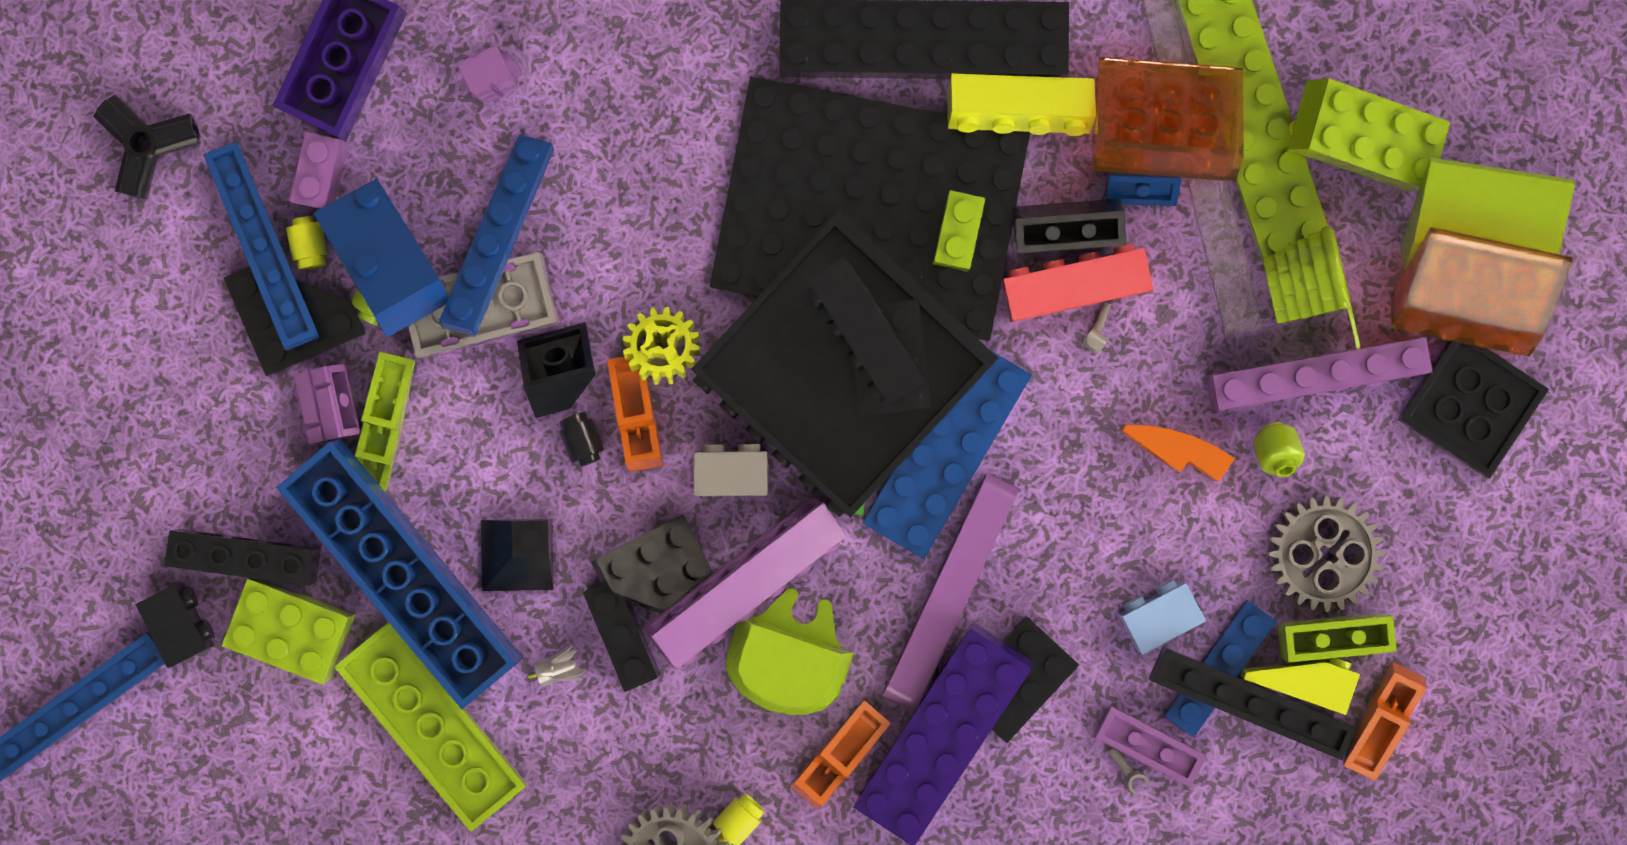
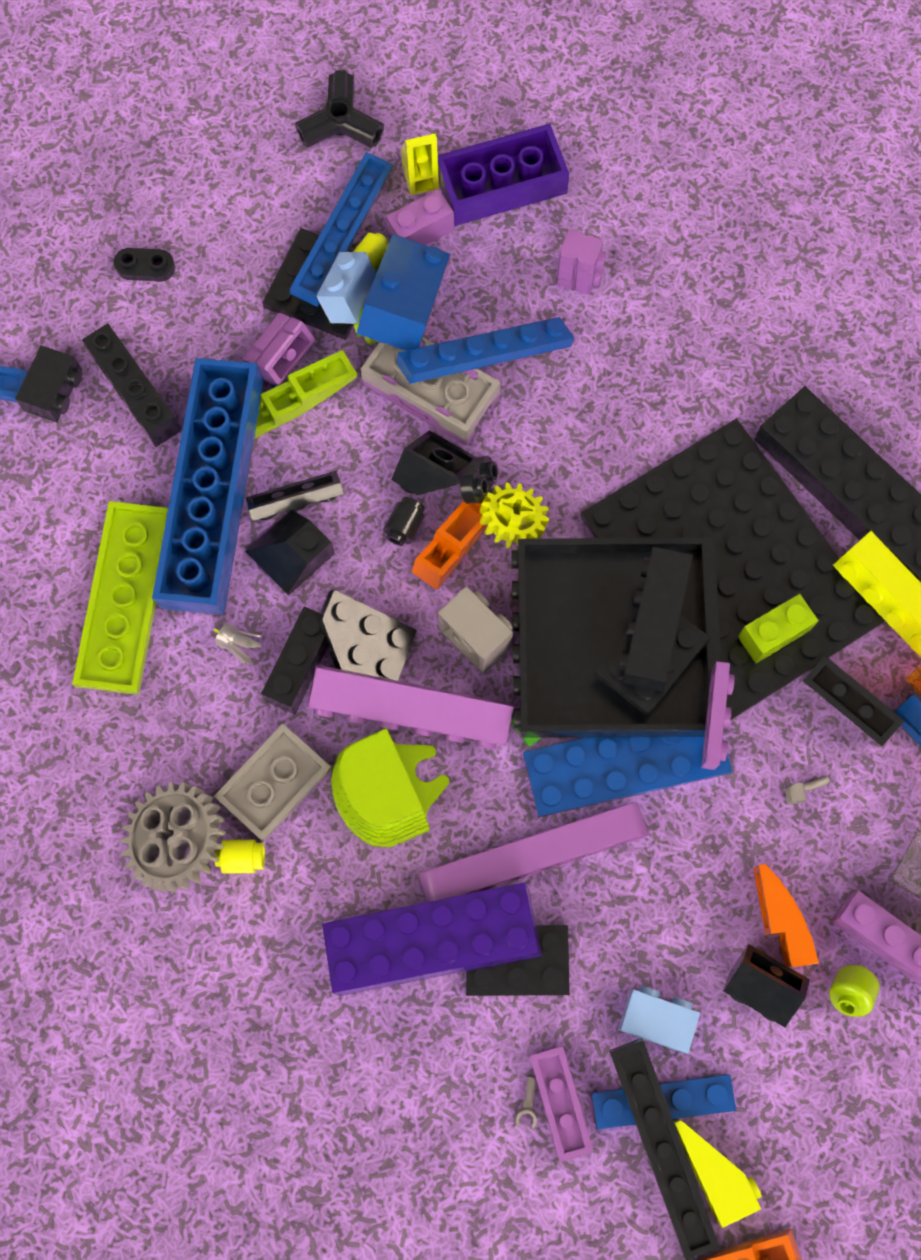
camera: 50 degrees right, 15 degrees down
(130, 444) = (142, 266): none -> black plate
(262, 121) = (421, 164): none -> neon yellow slope
(288, 630) = (108, 452): lime brick -> none
(327, 297) = (346, 287): none -> light blue brick
(473, 509) = (294, 496): none -> black plate
(604, 347) = (478, 479): none -> black plate
(701, 742) = (273, 782): none -> light grey plate
(840, 755) = (350, 884): orange slope -> none
(985, 356) = (717, 716): none -> medium lavender plate
(1076, 284) = (821, 744): coral brick -> none
(1213, 512) = (766, 986): none -> black brick
(1336, 637) = (770, 1165): lime brick -> none
(1347, 577) = (817, 1131): light grey gear -> none

